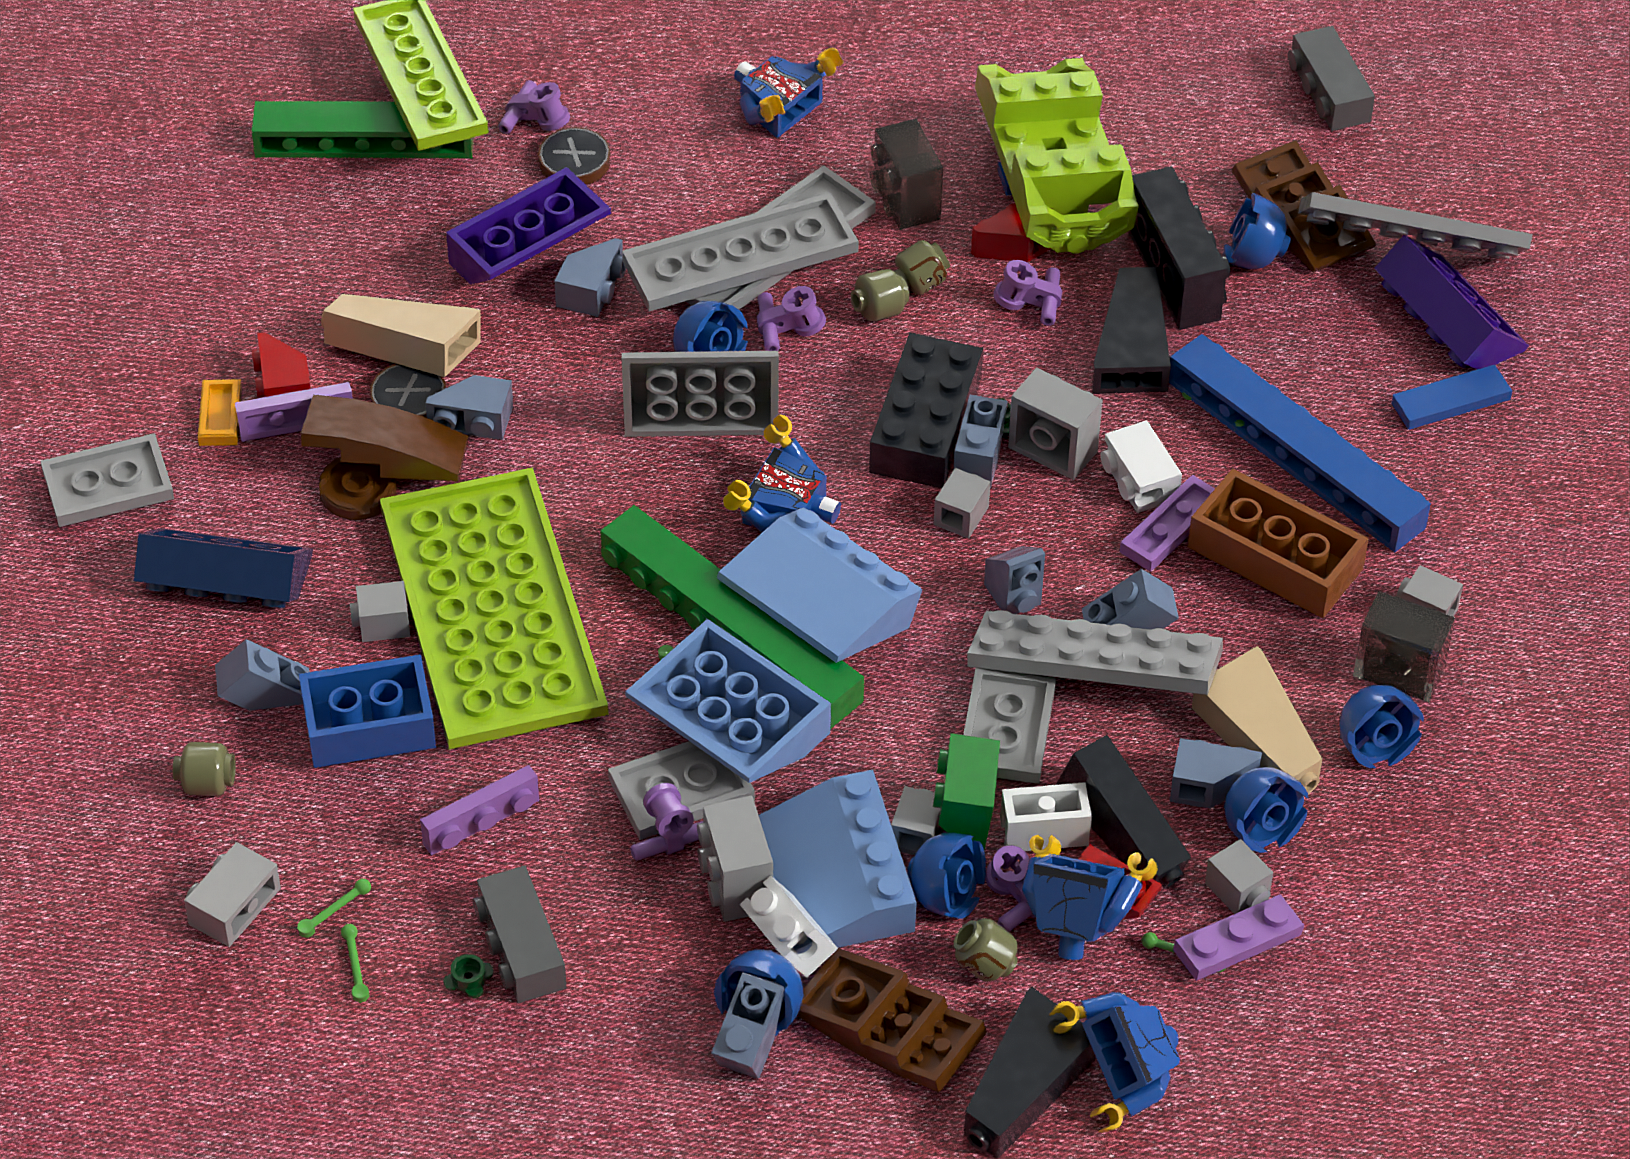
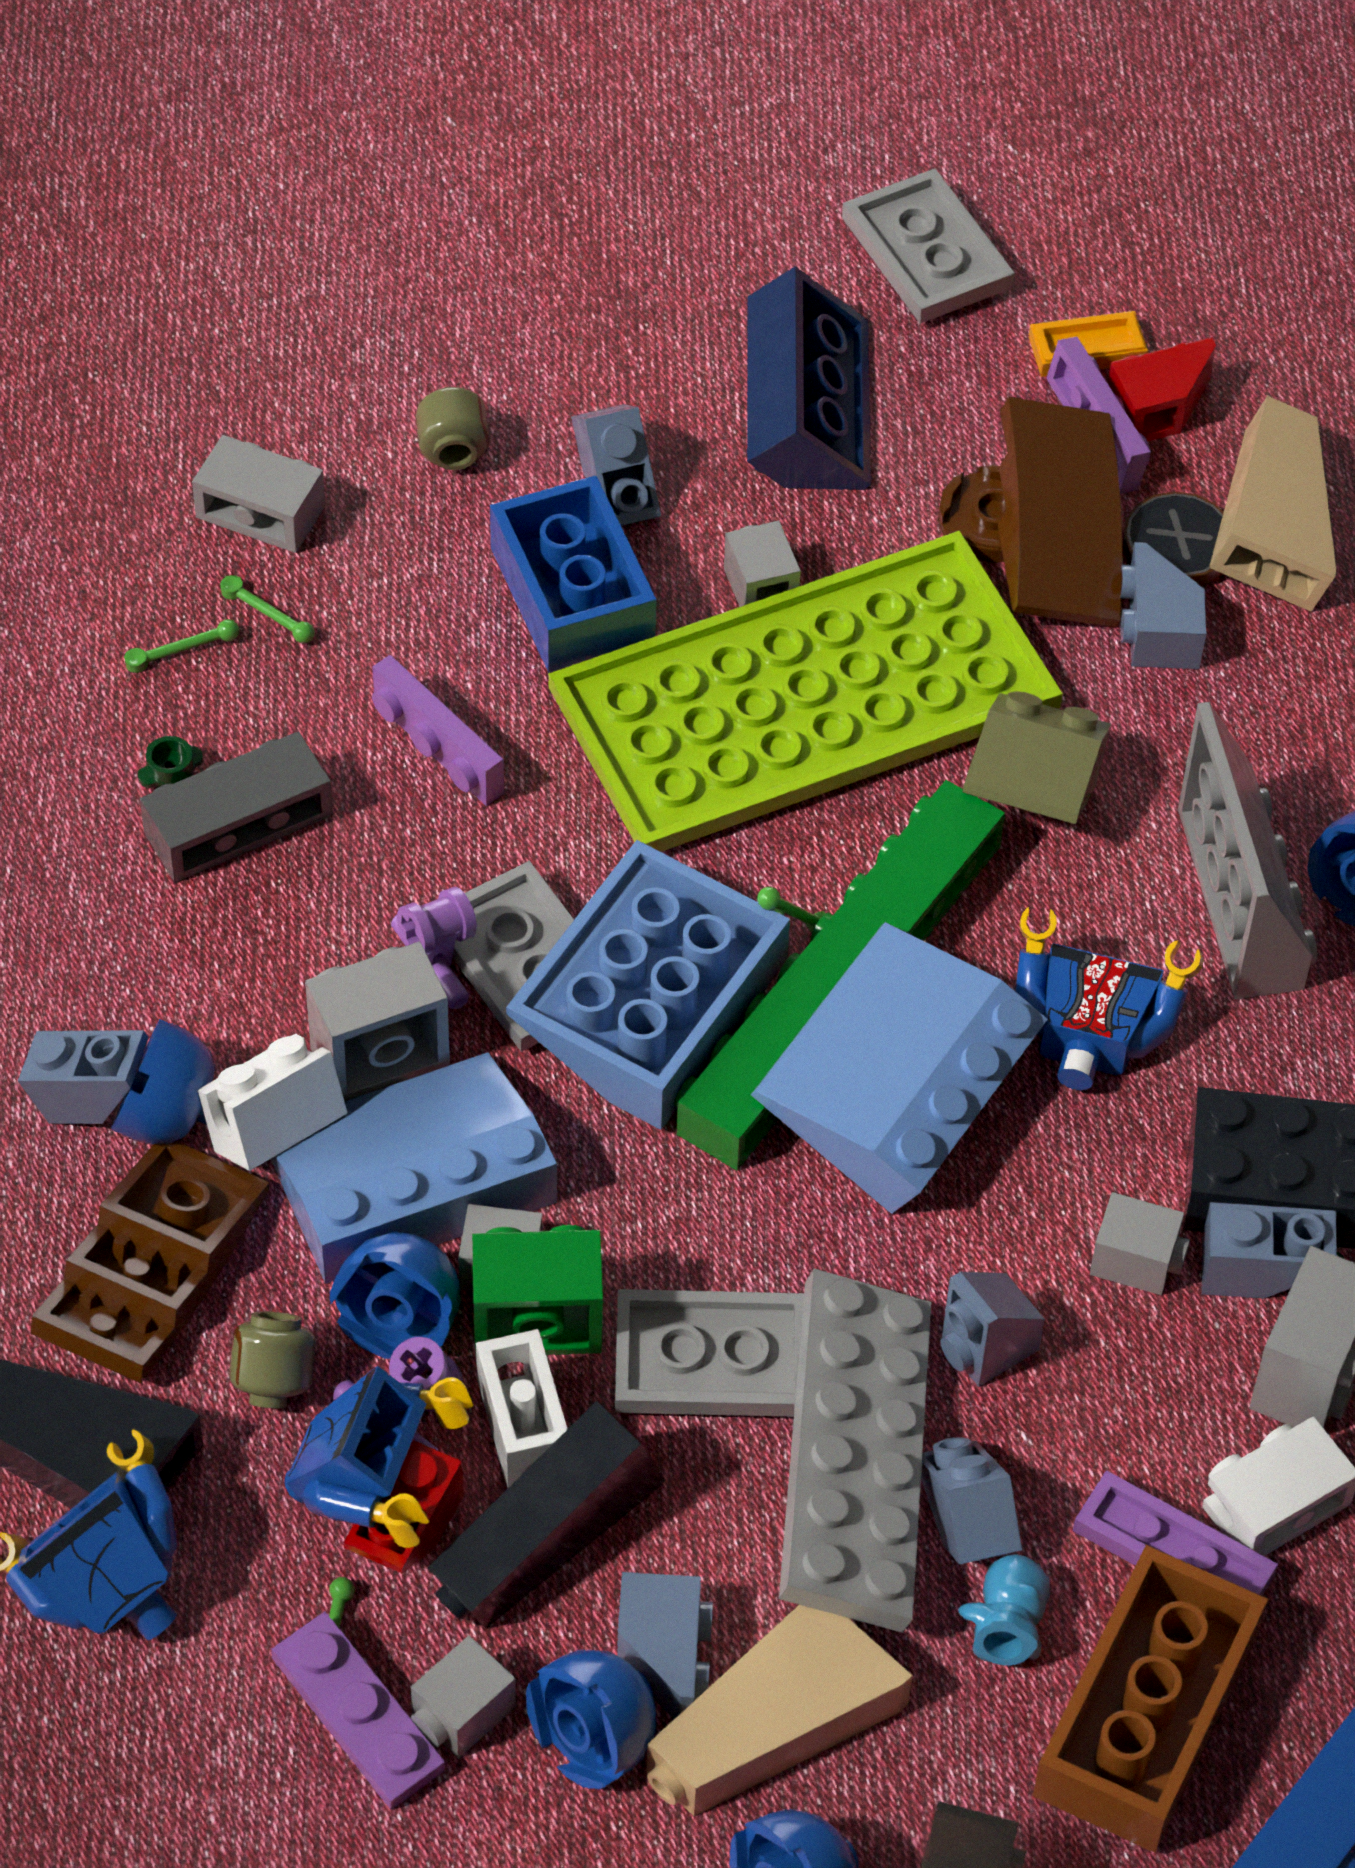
camera: 80 degrees right, 5 degrees up
(592, 482) = (1038, 756): none -> olive slope
(690, 625) = (770, 898): none -> bright green hinge
(1204, 599) = (1012, 1607): none -> dark azure animal

